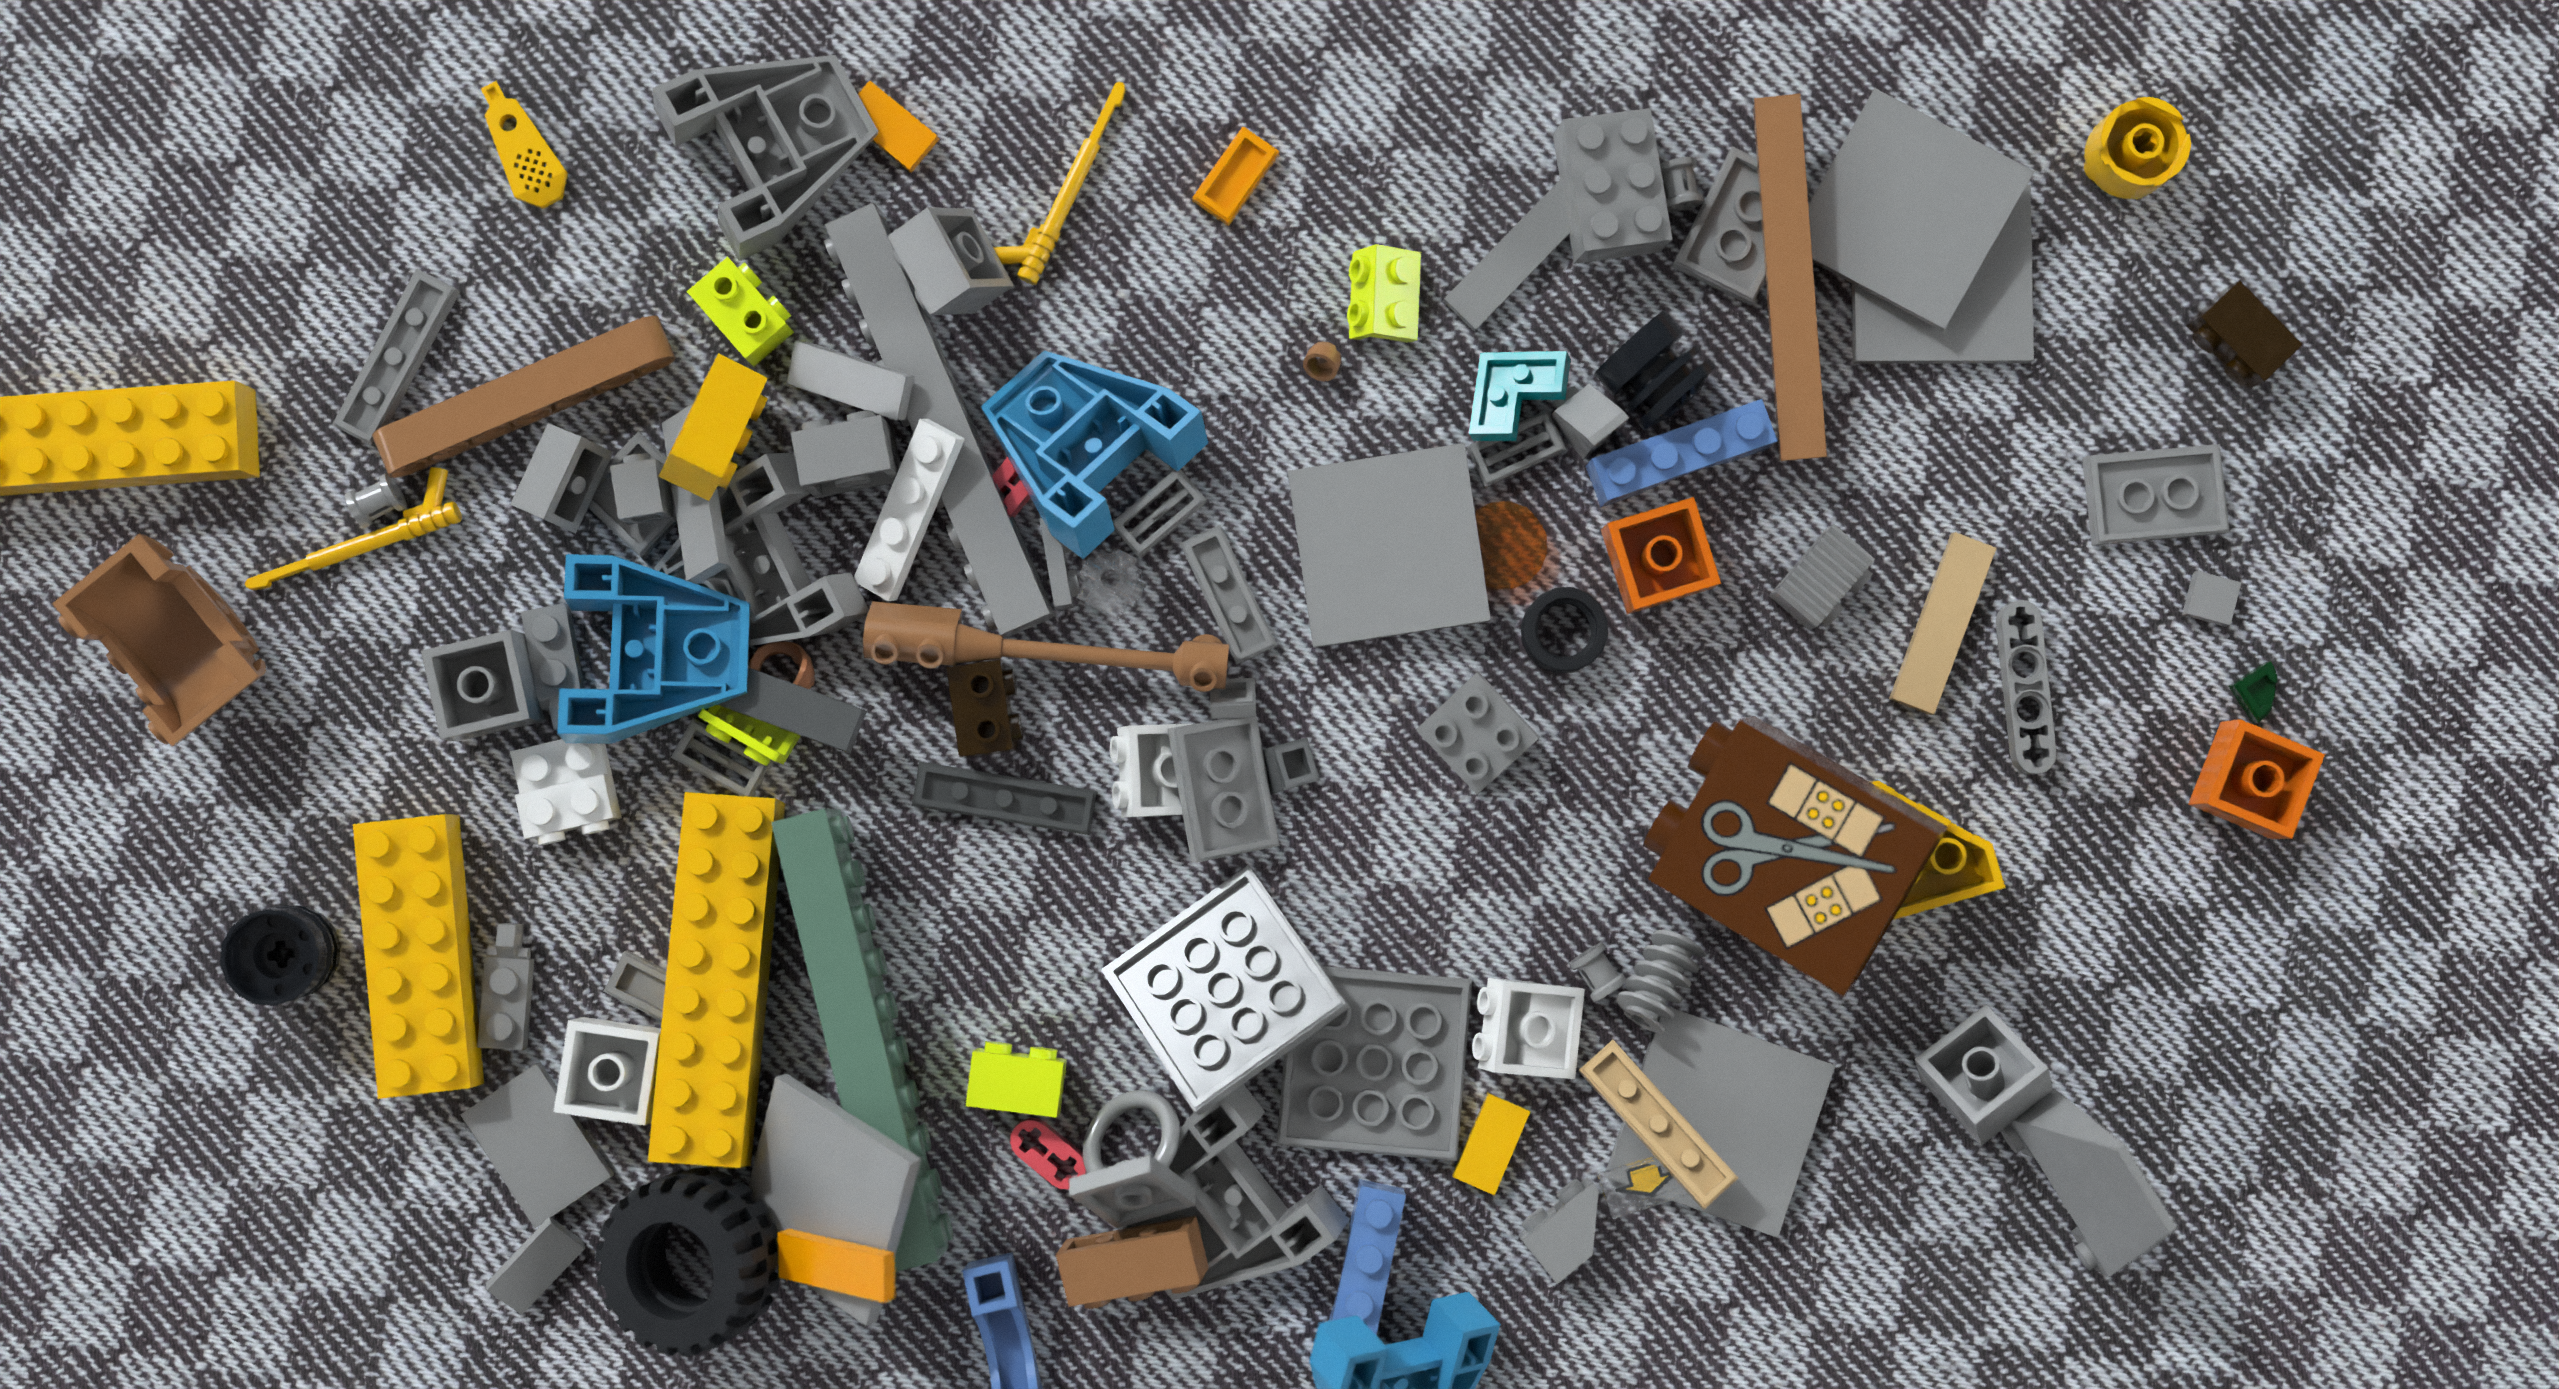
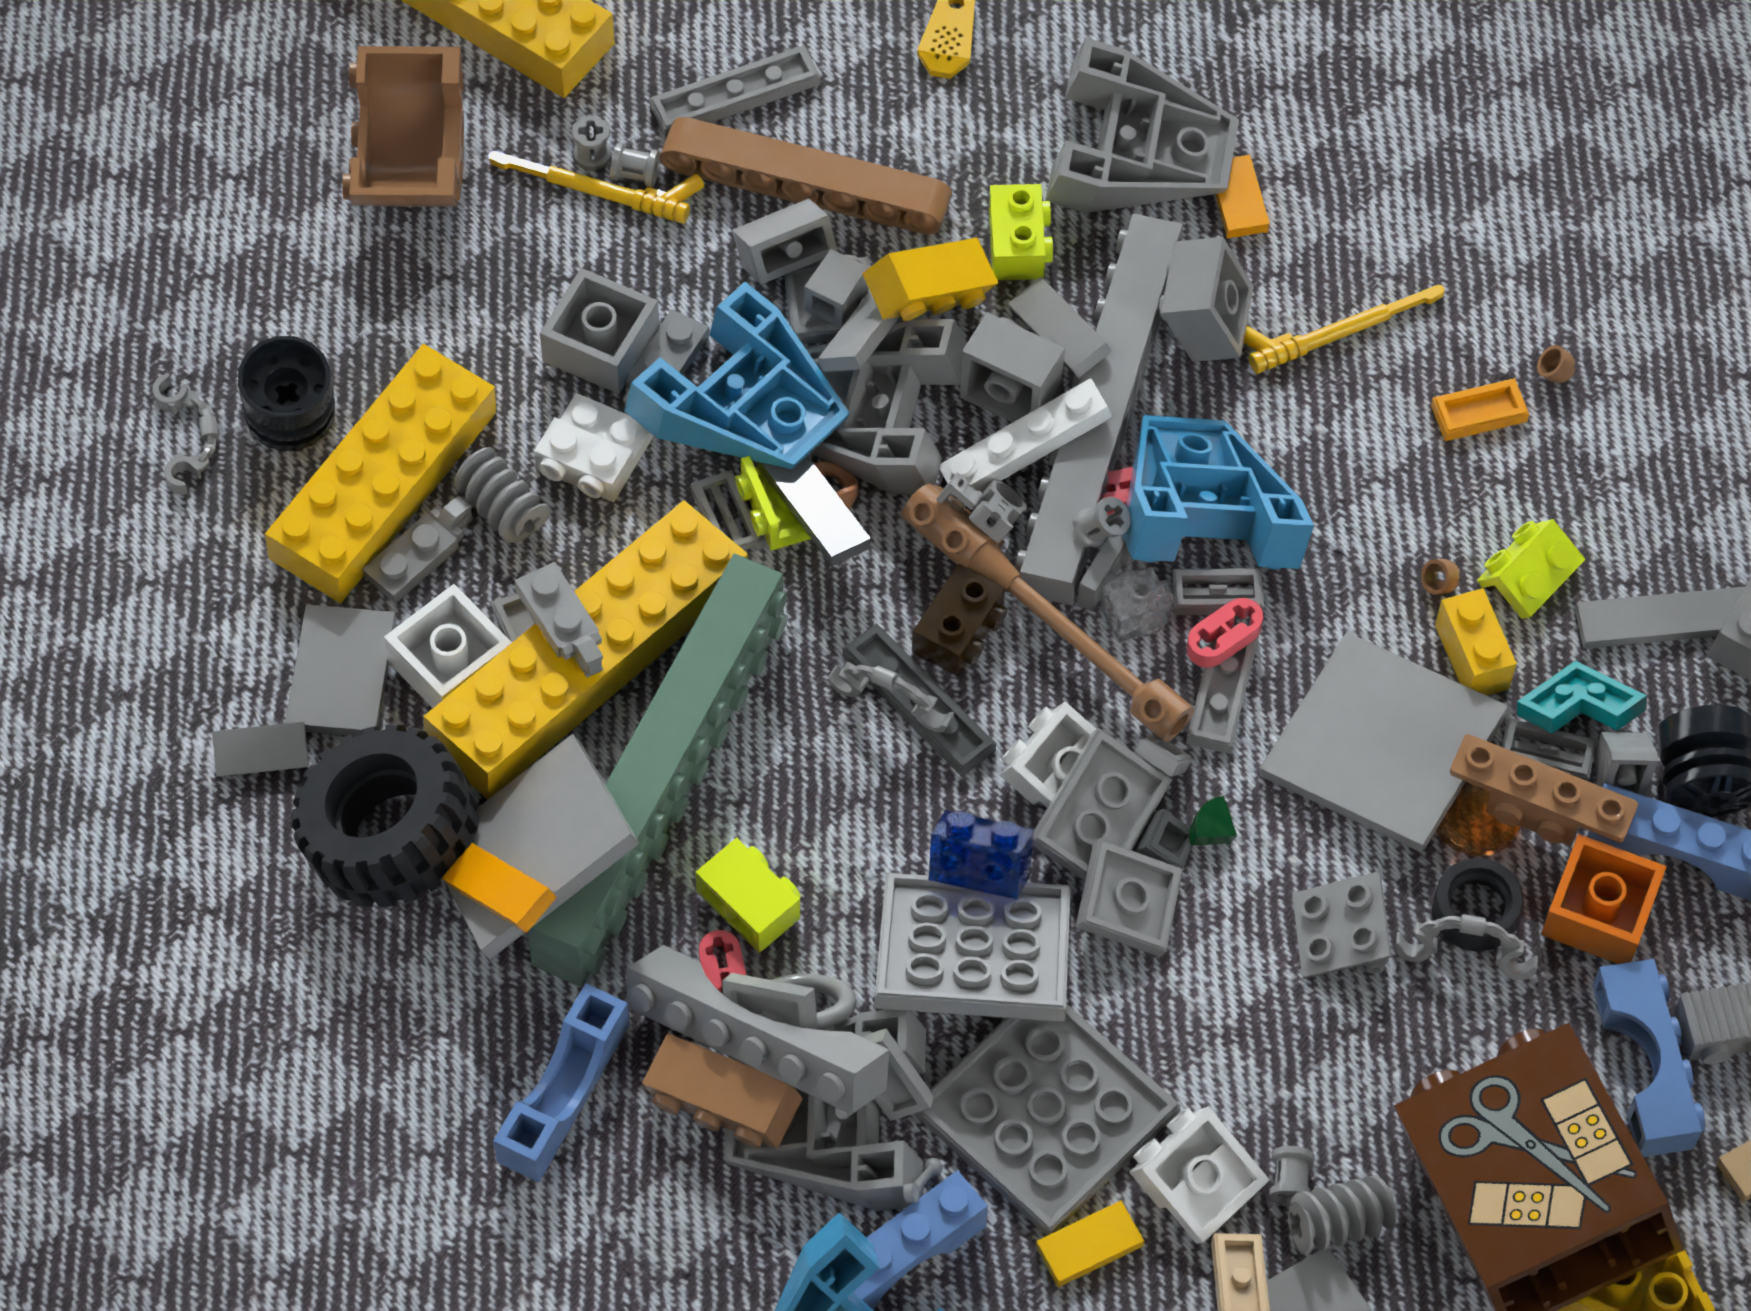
camera: 40 degrees right, 25 degrees down
(241, 1022) = (208, 432): none -> light grey piece
(308, 510) = (585, 142): none -> light grey bush
(530, 900) = (500, 496): none -> light grey piece
(682, 989) = (561, 617): none -> light grey hinge
(927, 597) = (996, 502): none -> light grey piece
(980, 821) = (853, 680): none -> light grey piece
(1036, 544) = (1104, 525): none -> light grey bush
(1165, 904) = (980, 854): none -> clear blue brick
(1187, 550) = (1220, 625): none -> coral beam
(1212, 1200) = (825, 1064): none -> light grey arch
(1246, 1150) = (905, 1087): none -> light grey tile
(1261, 79) = (1556, 364): none -> medium nougat hinge
(1302, 842) = (1129, 898): none -> light grey tile
(1313, 724) = (1212, 824): none -> dark green tile
(1343, 1235) = (931, 1169): none -> light grey hinge
(1396, 403) = (1475, 642): none -> yellow brick
(1554, 508) = (1540, 795): none -> medium nougat bracket
(1621, 657) = (1473, 925): none -> light grey piece
(1828, 695) = (1634, 1003): none -> medium blue arch

